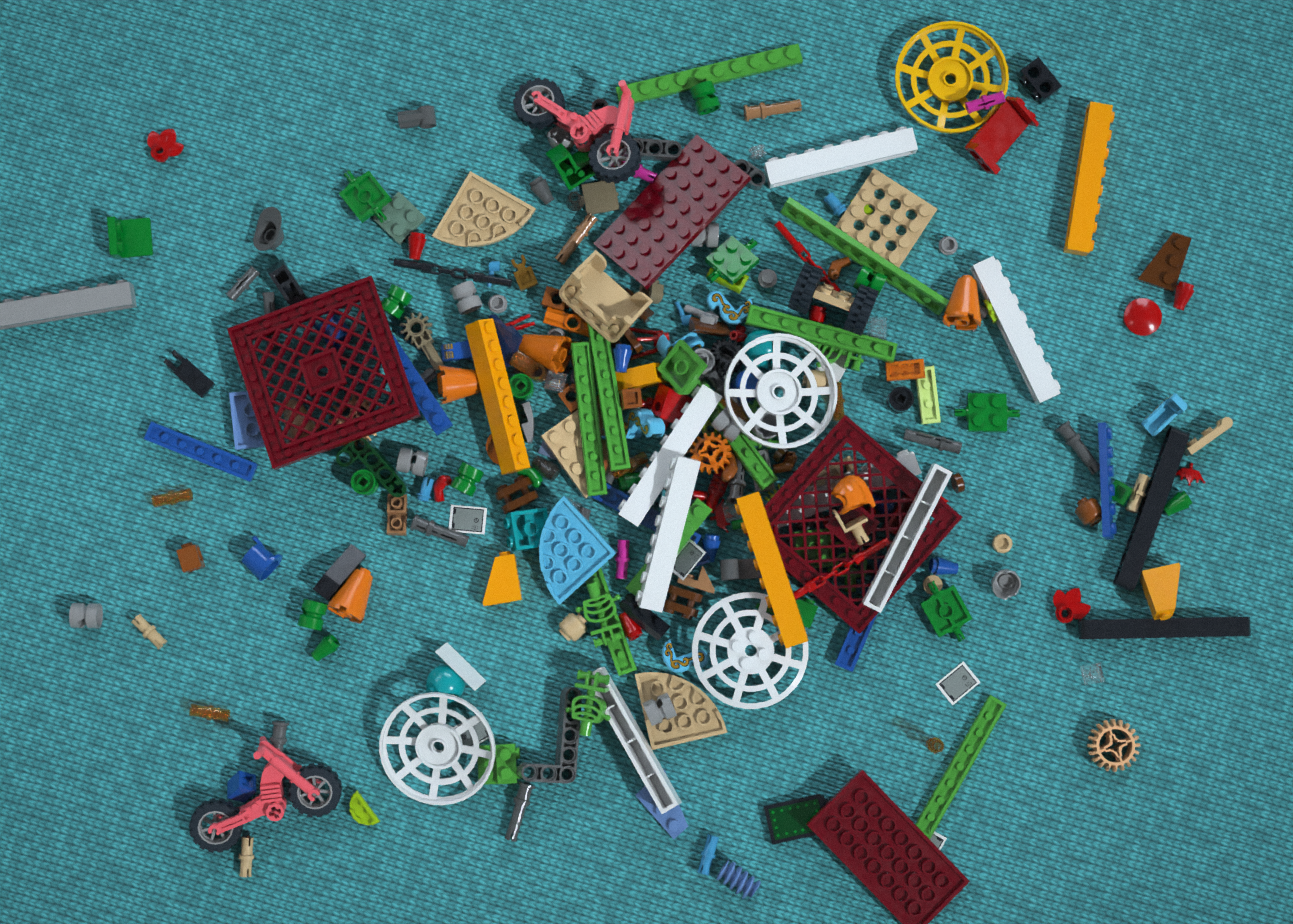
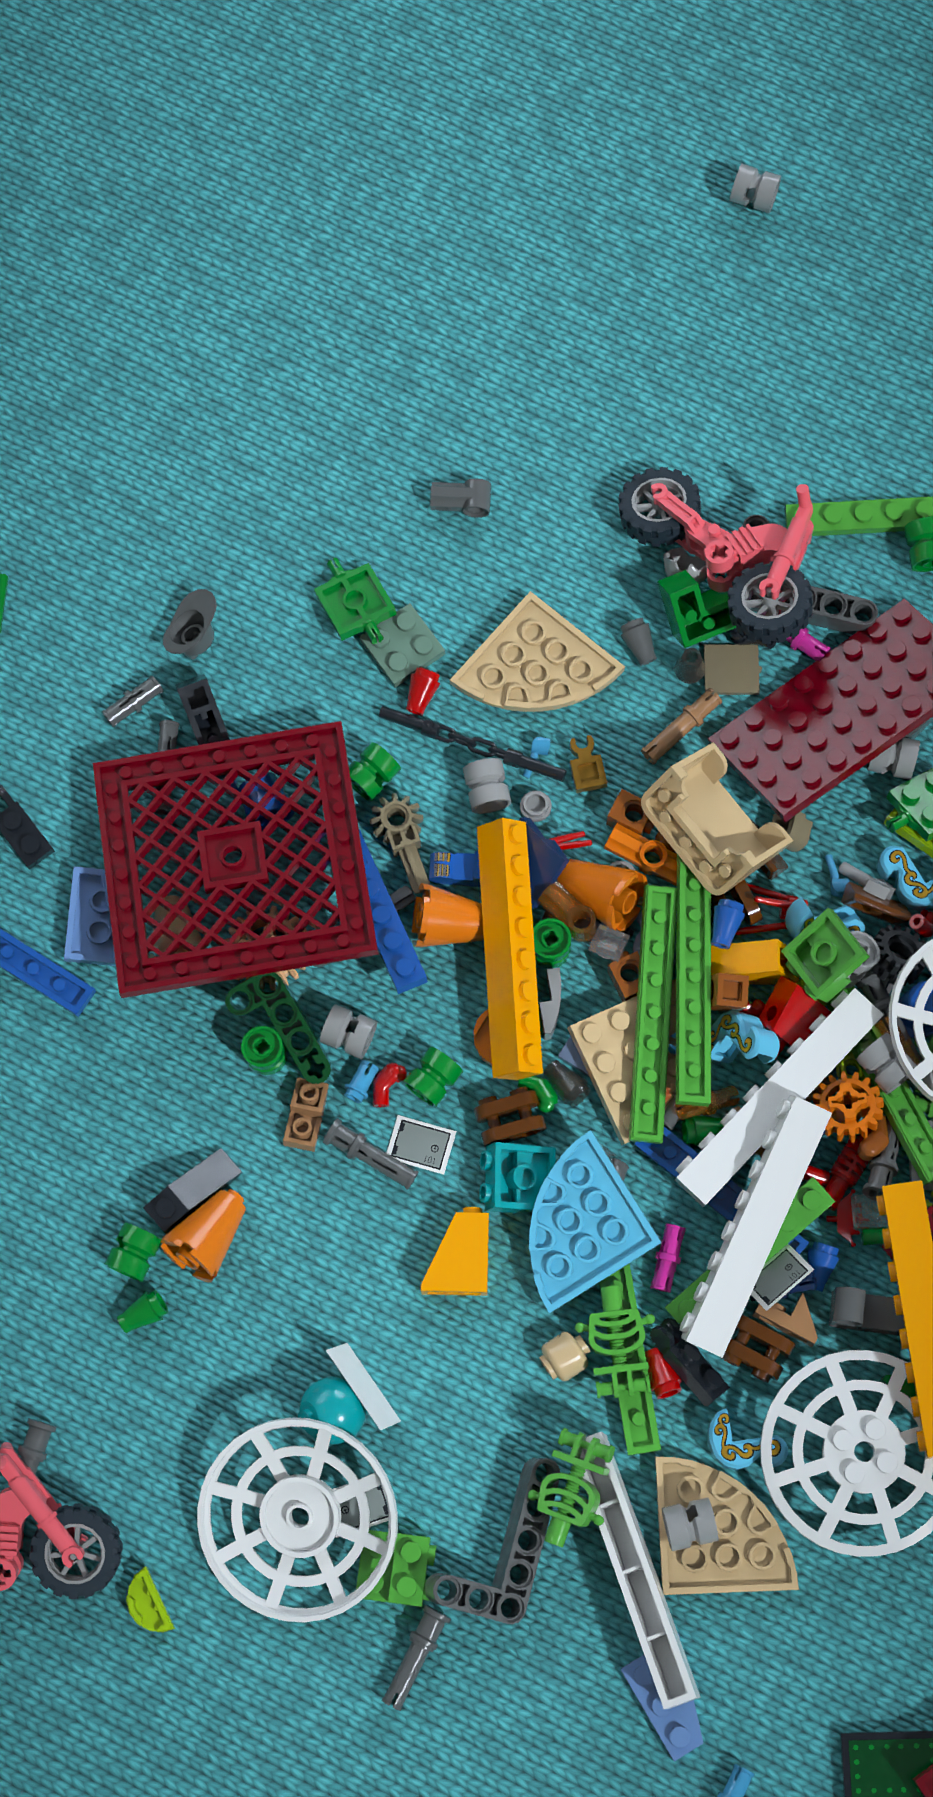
camera: 15 degrees right, 10 degrees down
(164, 142) = (57, 468): red plate -> none
(260, 560) = (67, 1147): blue hat -> none

